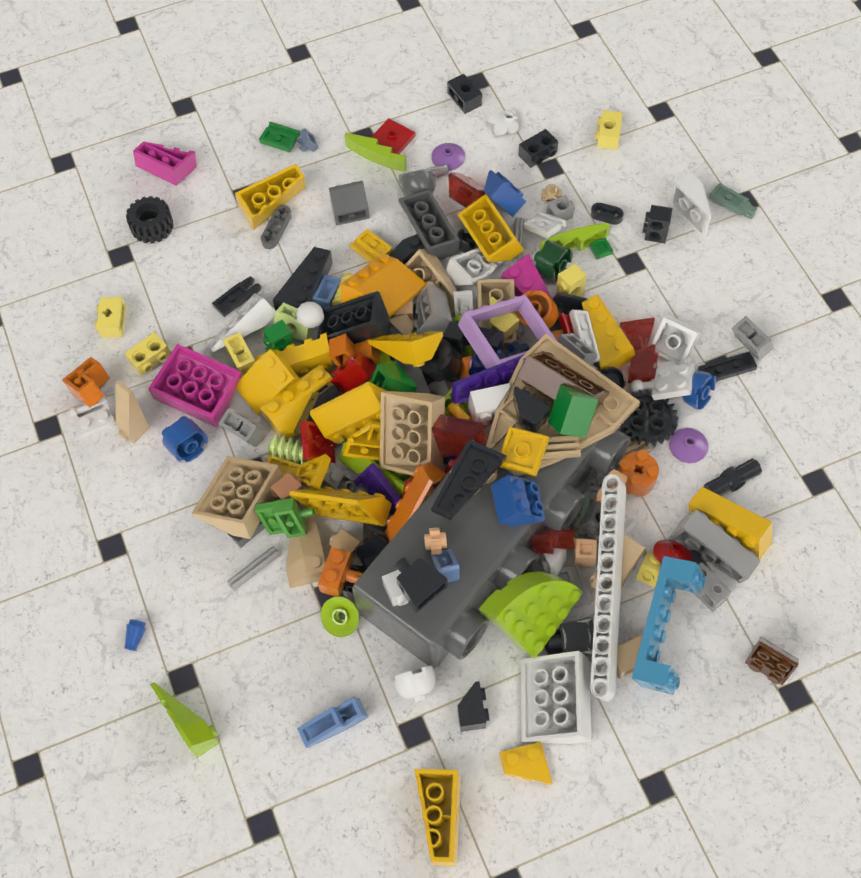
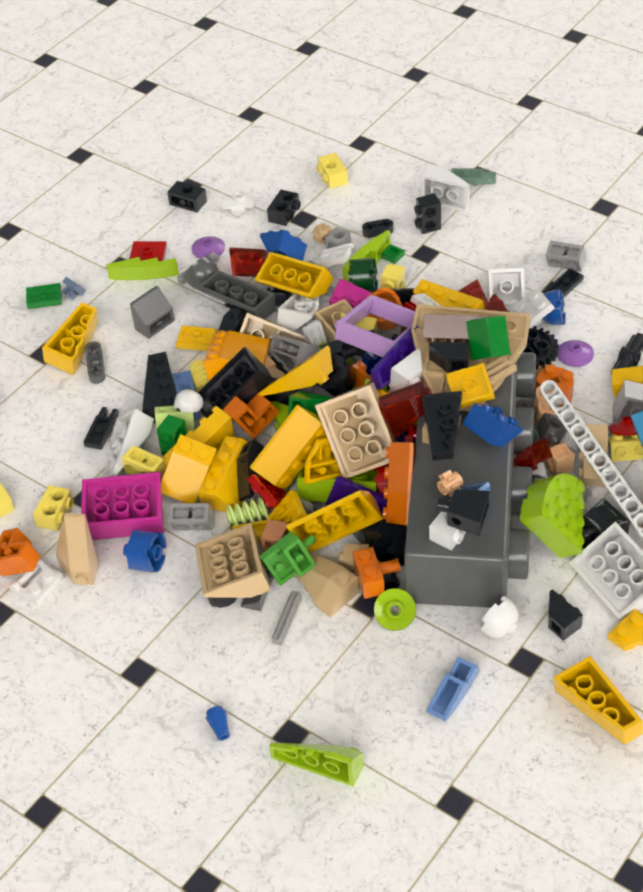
camera: 30 degrees left, 15 degrees down
(353, 374) = (263, 425): red brick -> none

